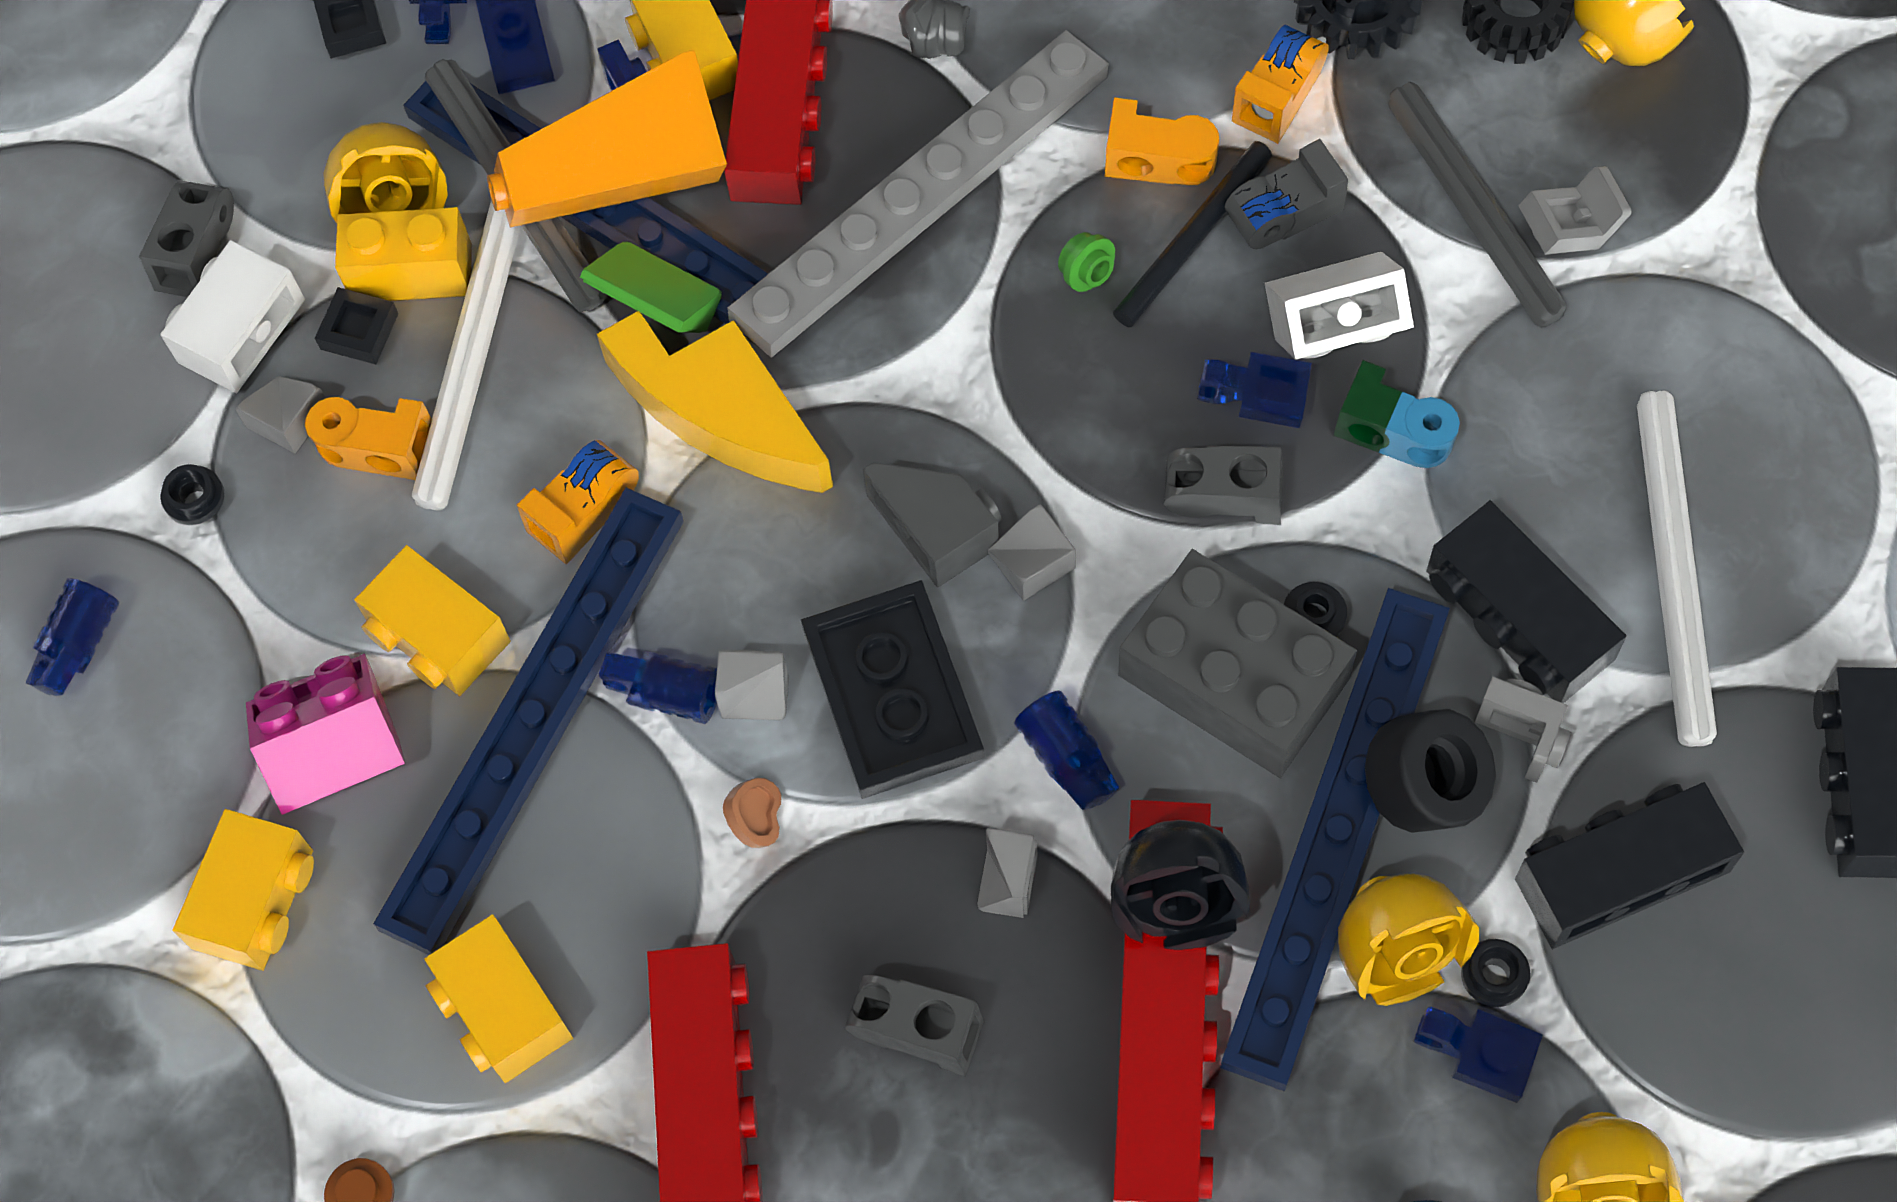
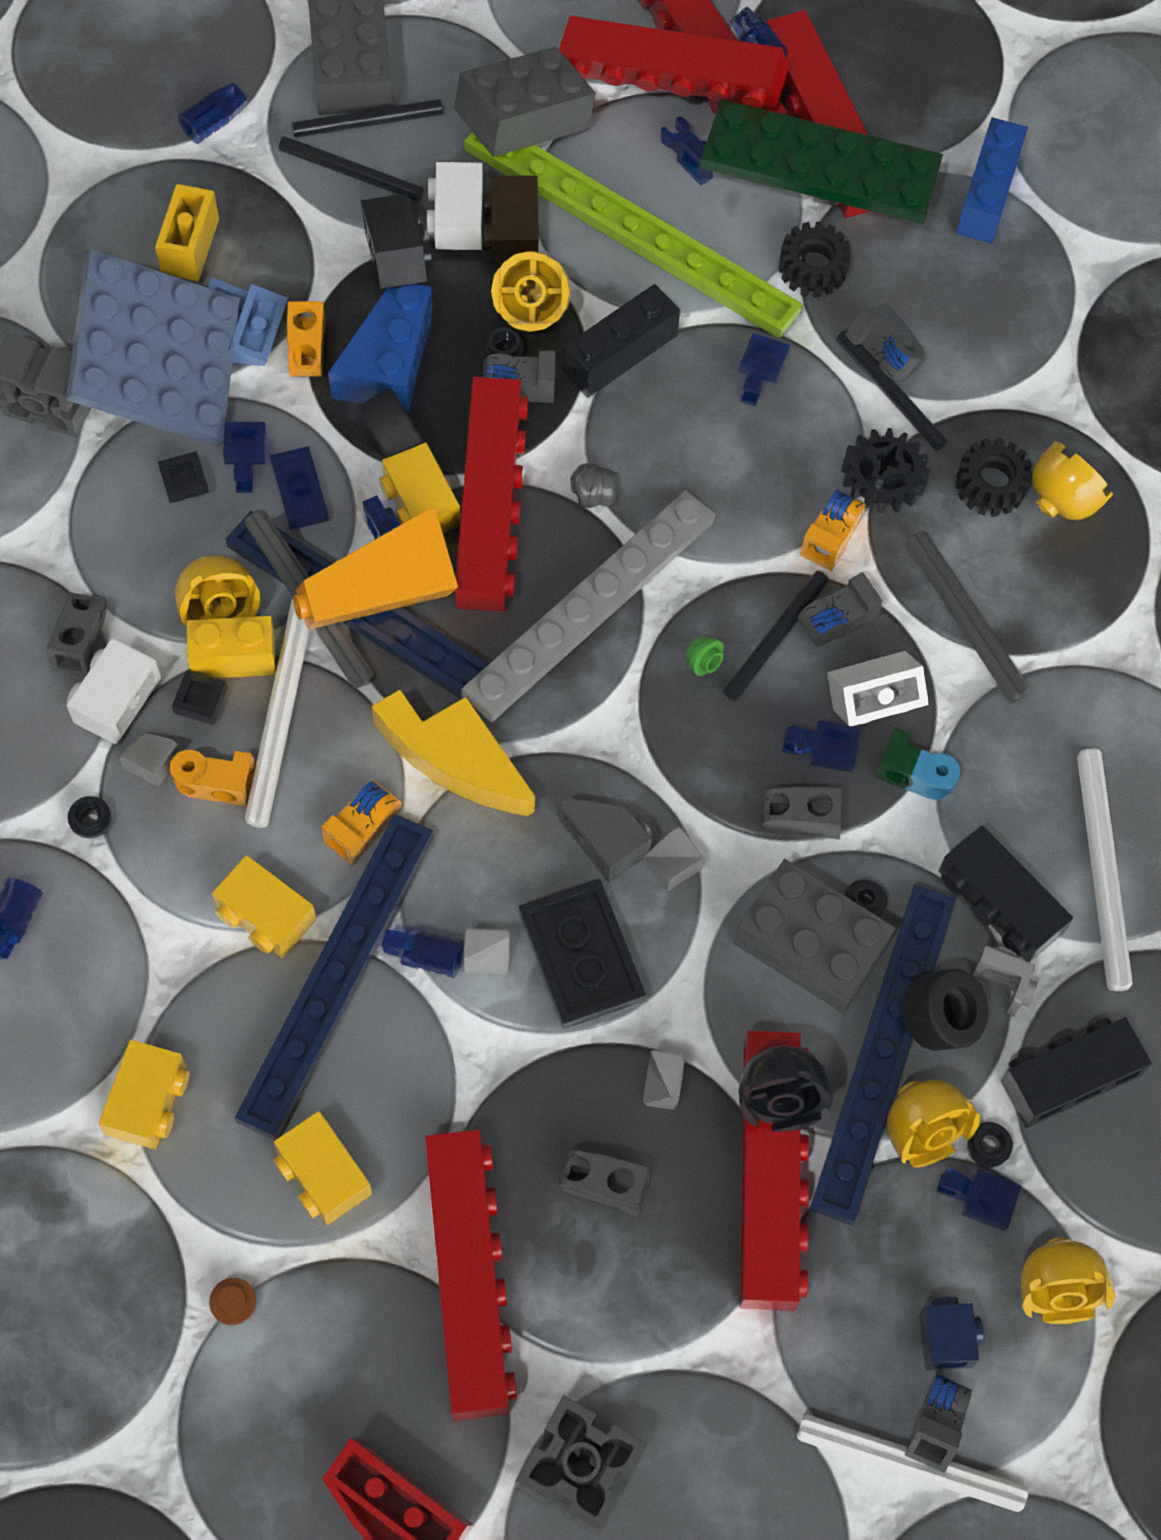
camera: 10 degrees left, 0 degrees up
(322, 732) = (192, 984): slope -> none
(654, 288) = (408, 673): bright green slope -> none
(752, 812) = (489, 1039): nougat piece -> none
(1067, 750) = (701, 995): clear blue hinge -> none
(1159, 148) = (752, 575): light orange leg -> none
(1576, 216) = (1036, 625): light grey bracket -> none

